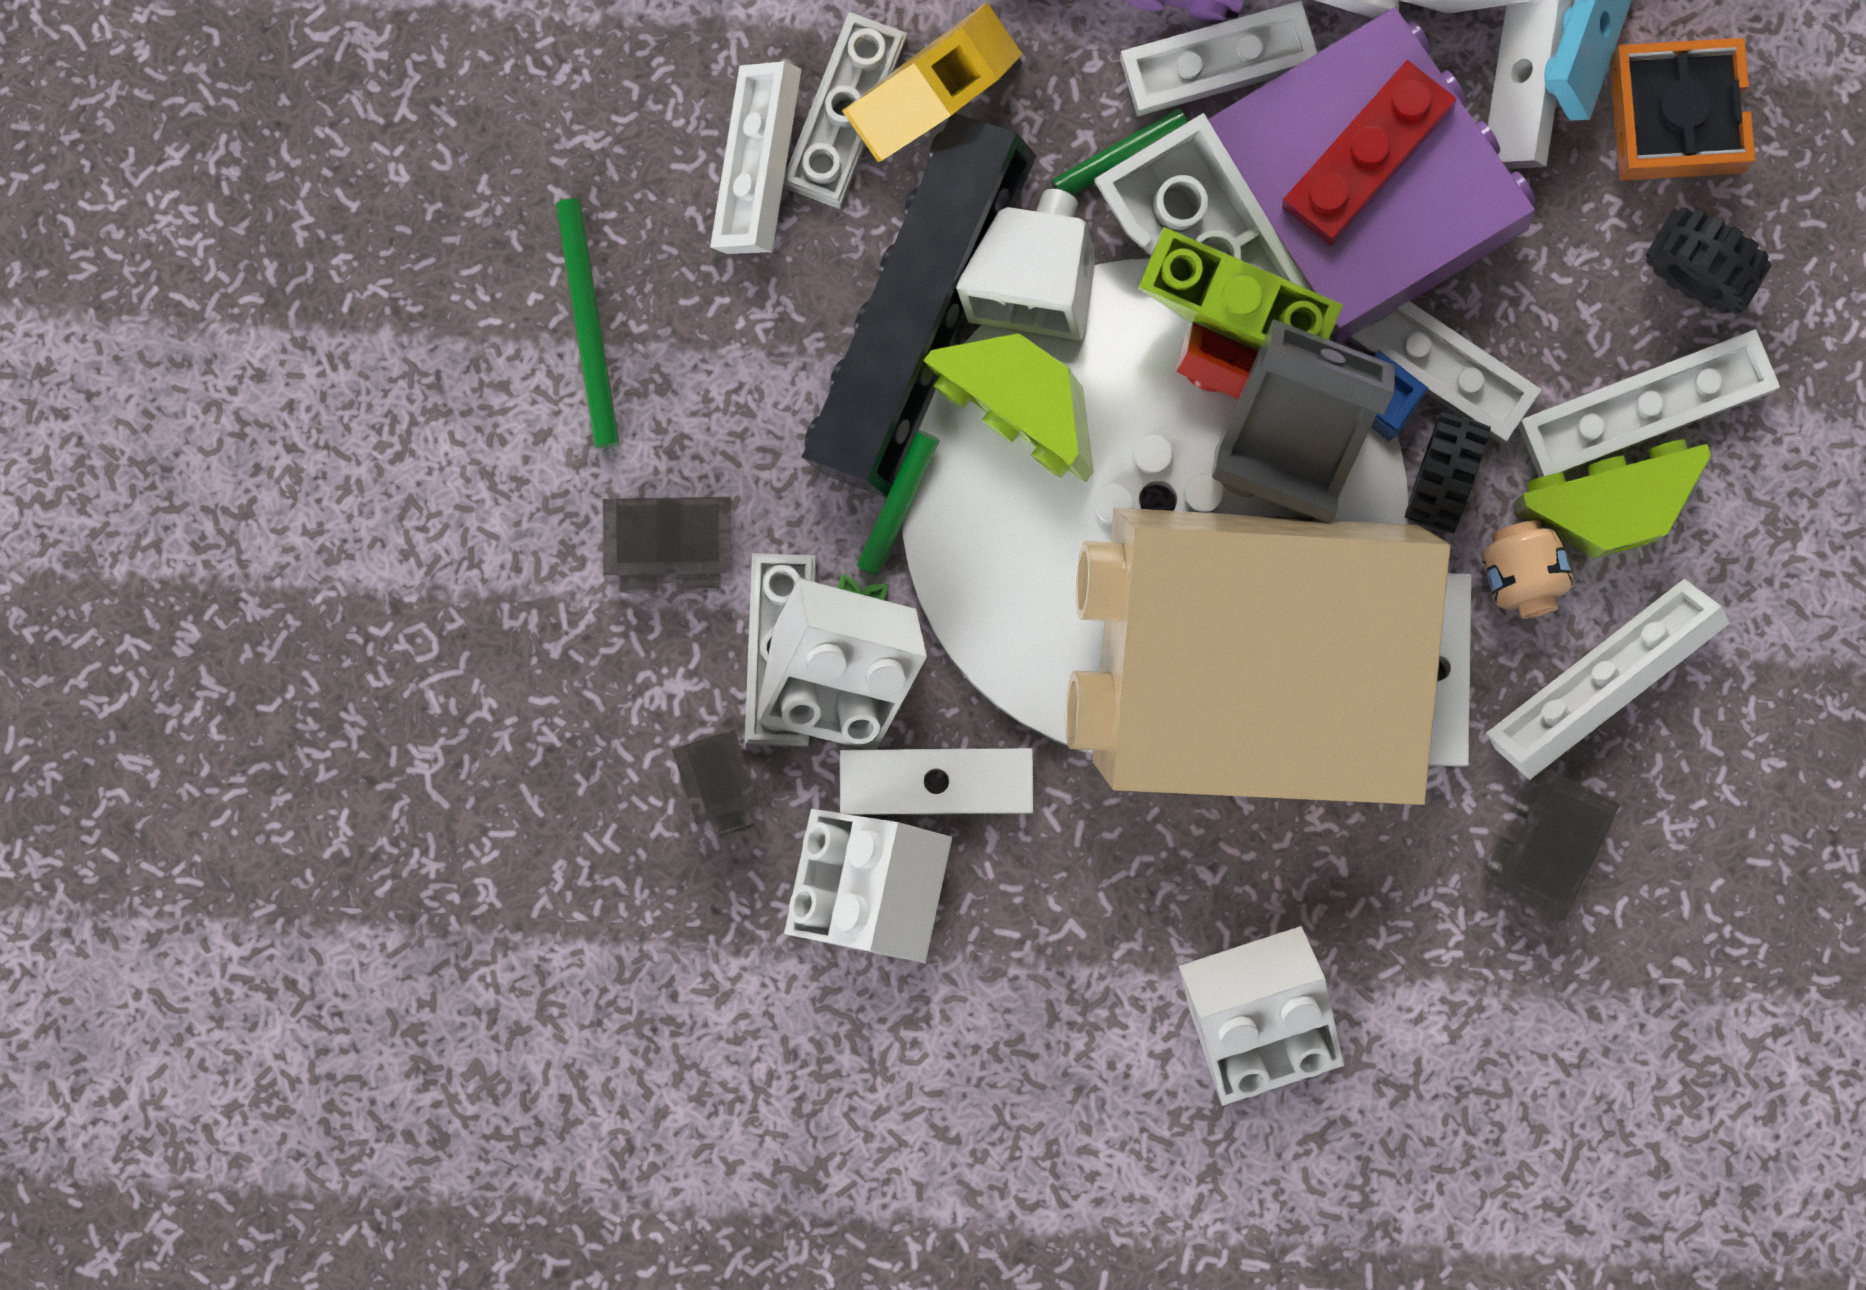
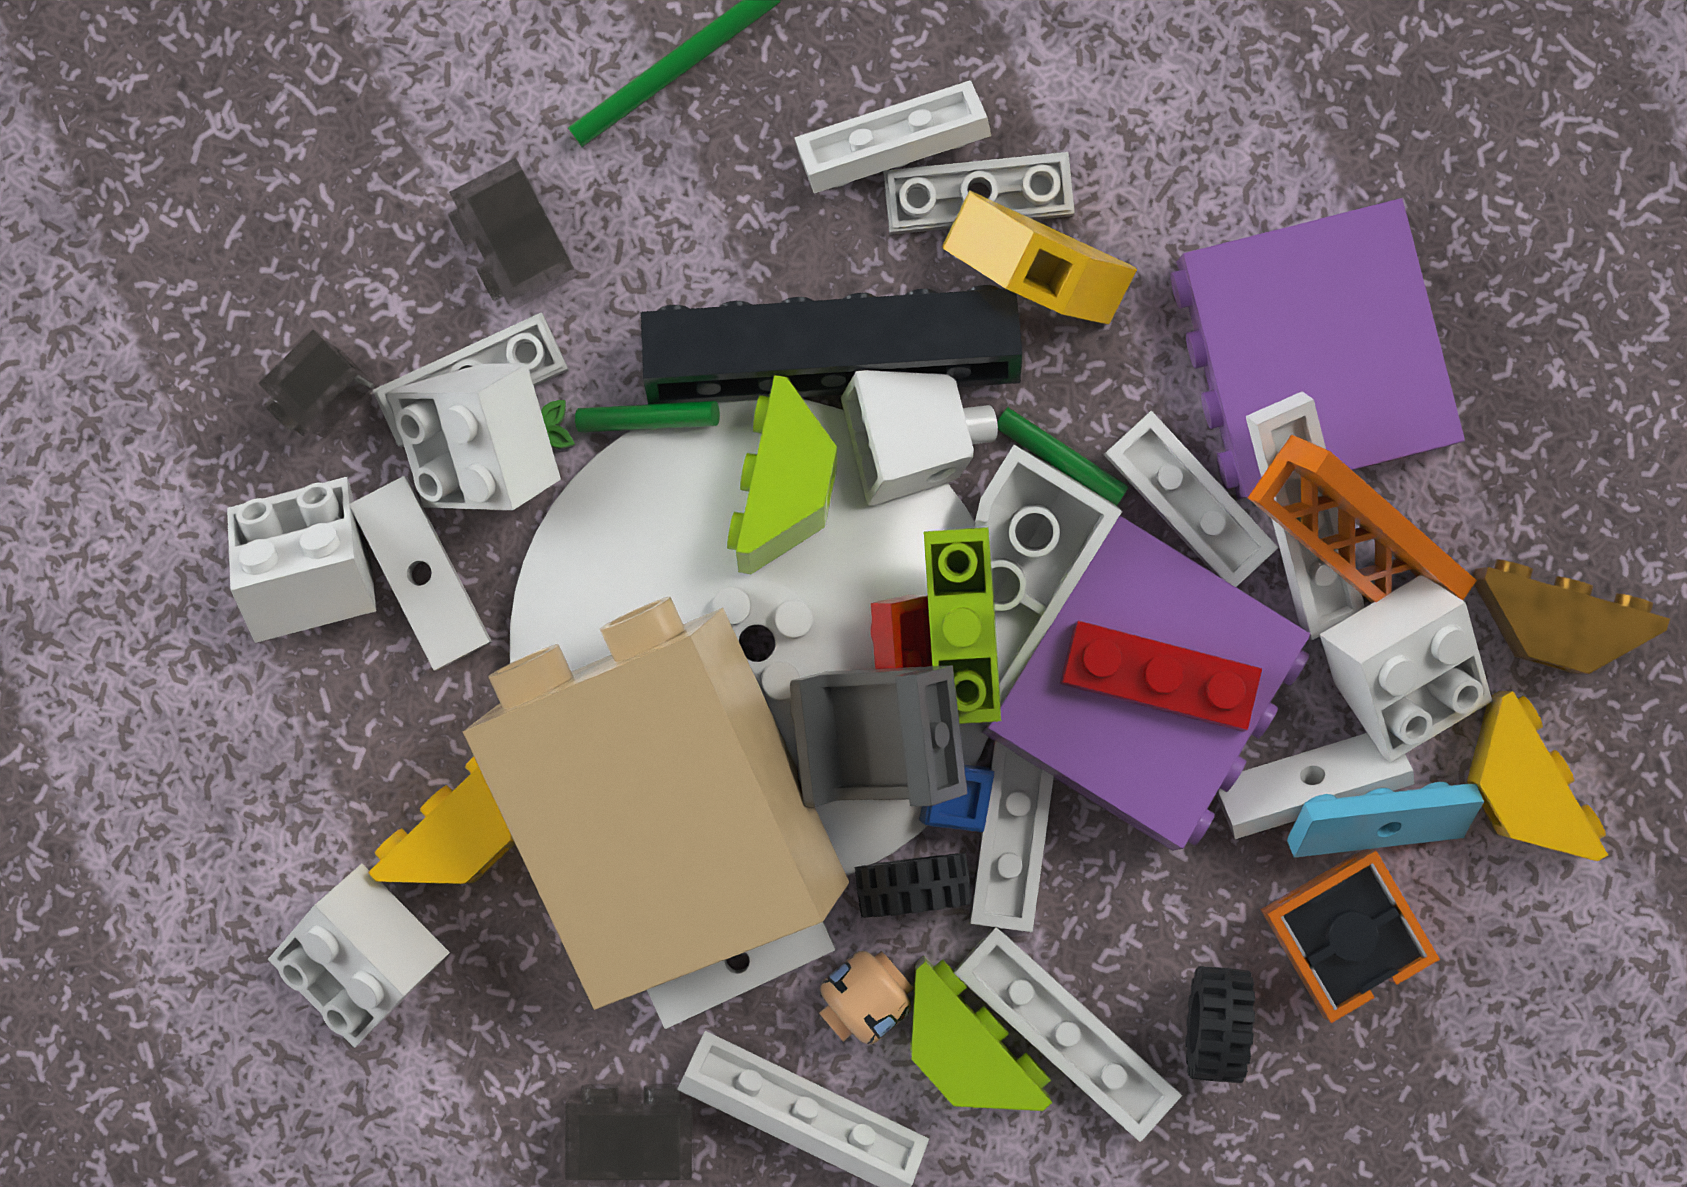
camera: 60 degrees right, 5 degrees up
(1194, 860) = (453, 842): none -> yellow slope

